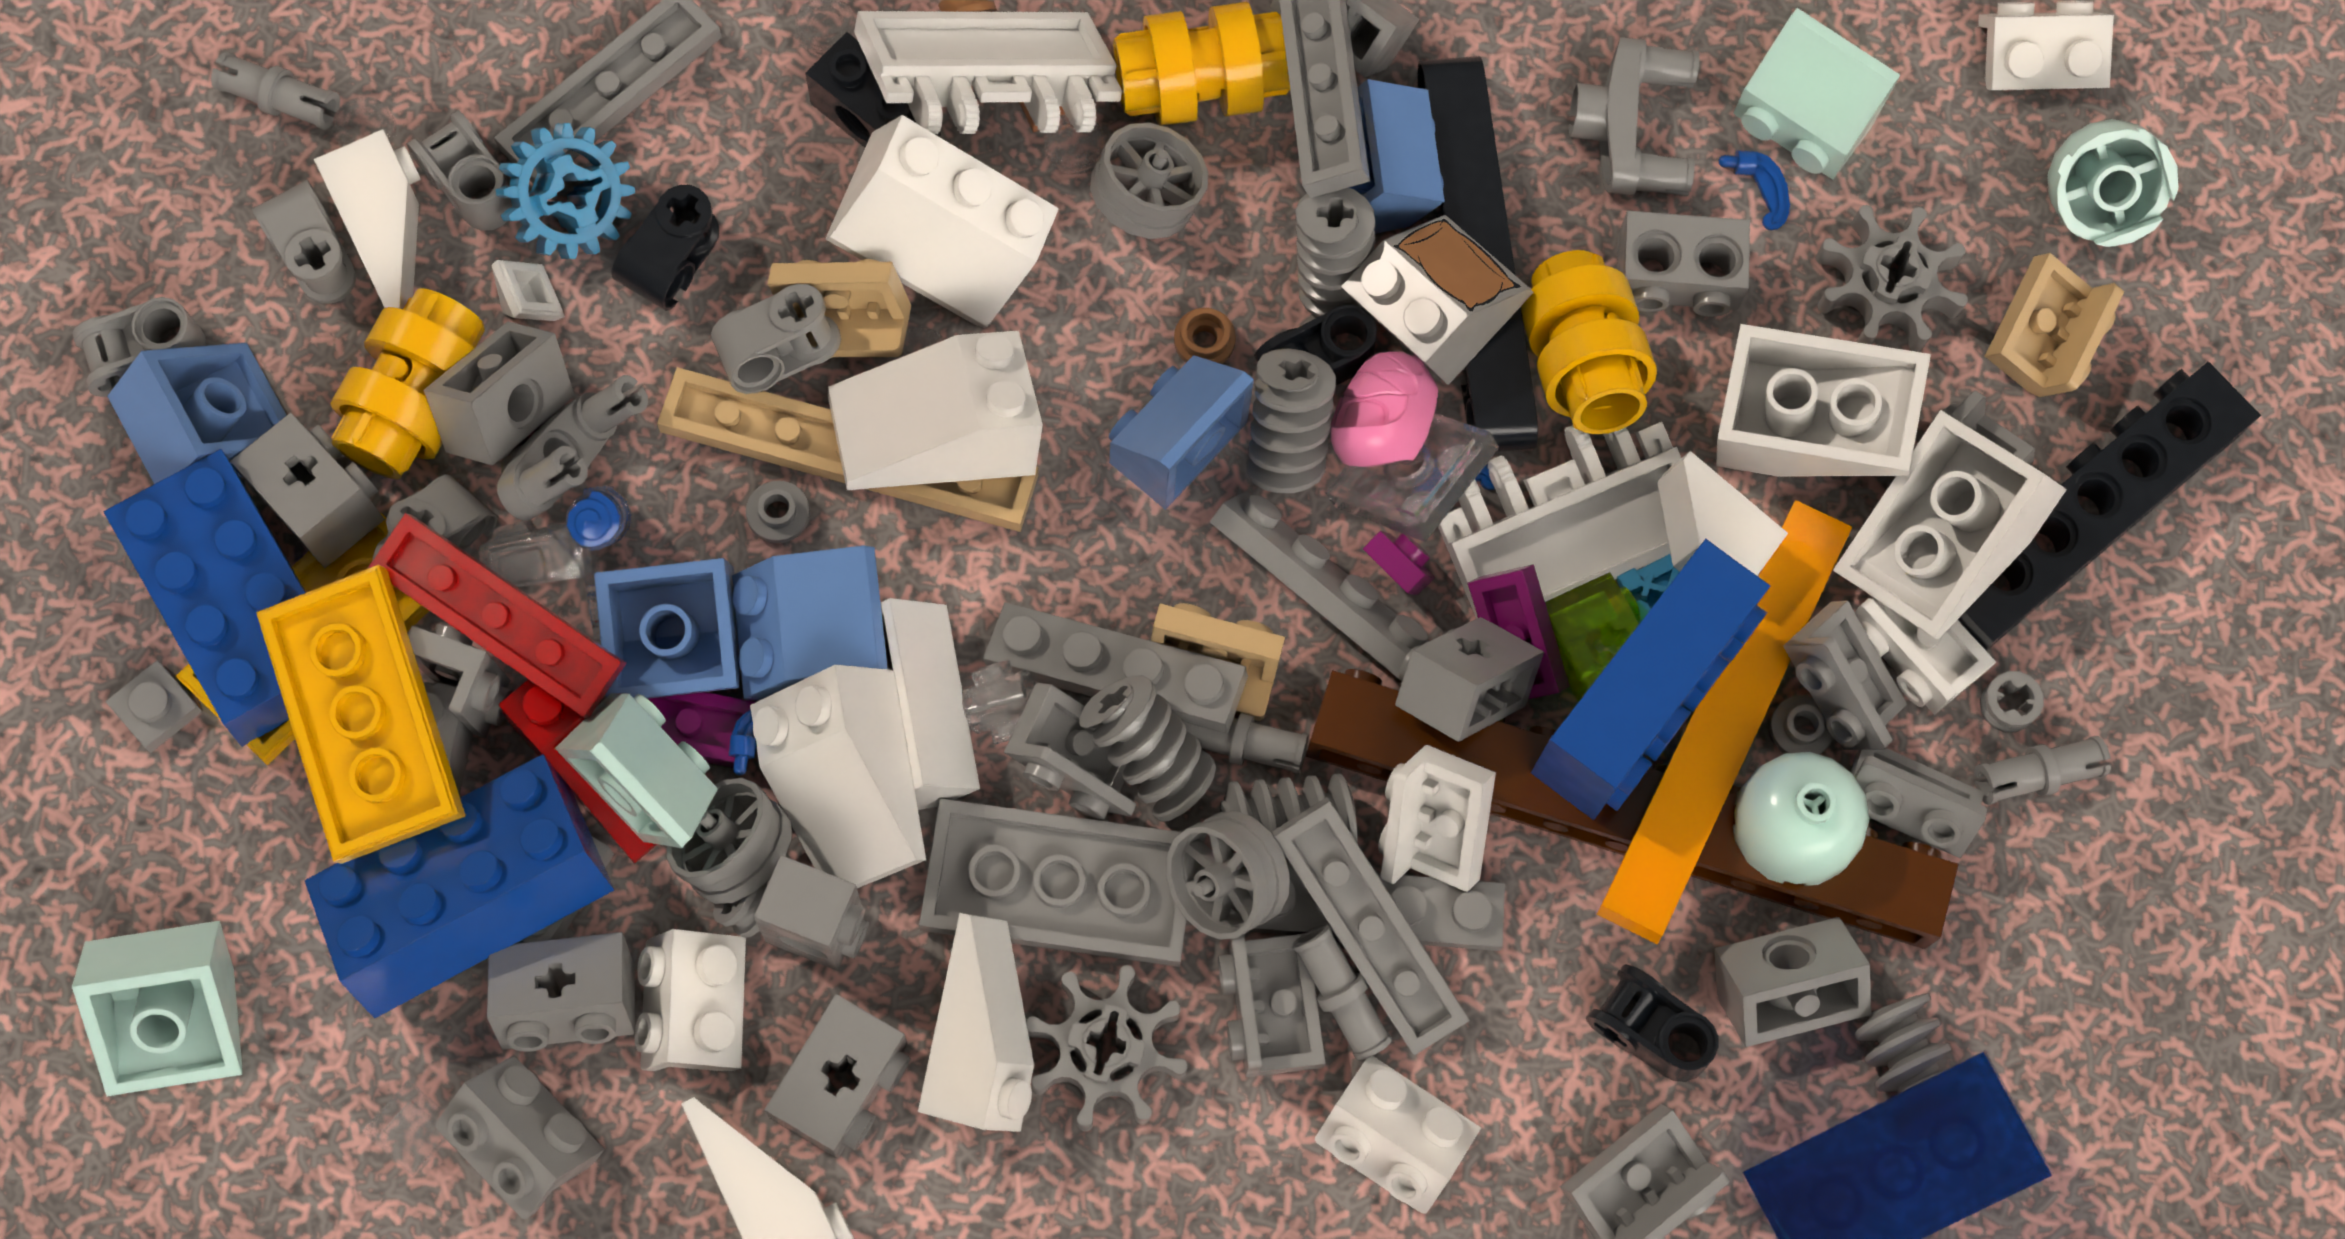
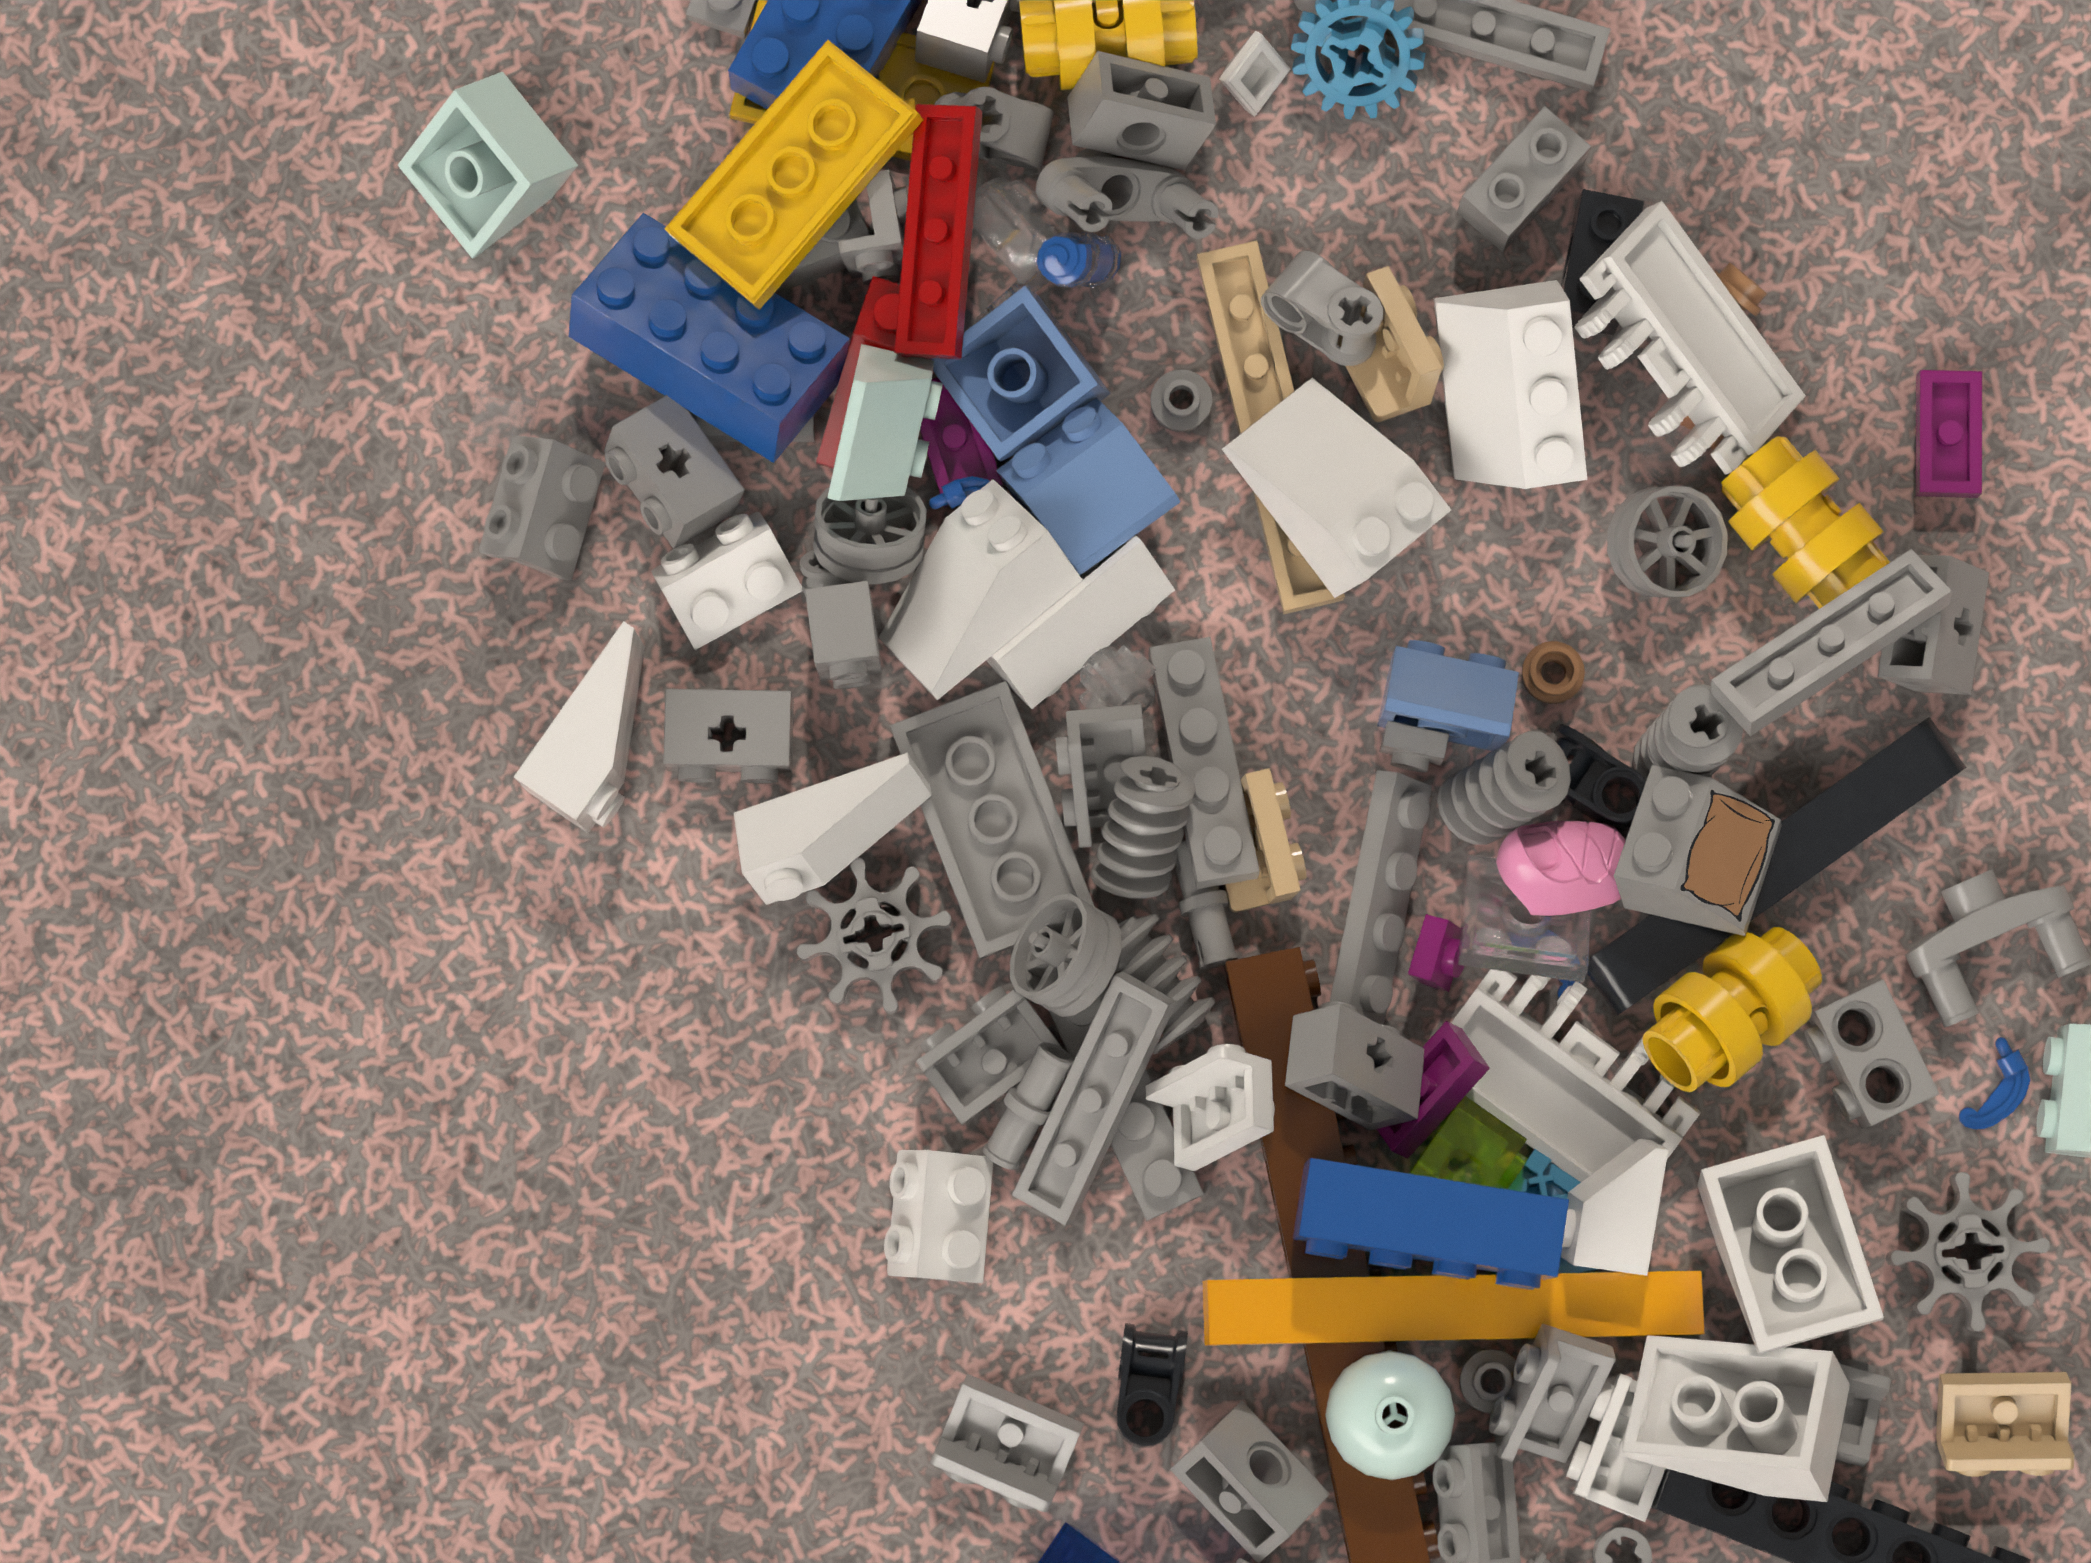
camera: 70 degrees right, 10 degrees up
(666, 256) = (1357, 167): black piece -> none
(764, 123) = (1523, 179): none -> light grey brick
(1204, 483) = (1413, 746): none -> light grey plate
(1399, 154) = (1813, 744): medium blue slope -> none

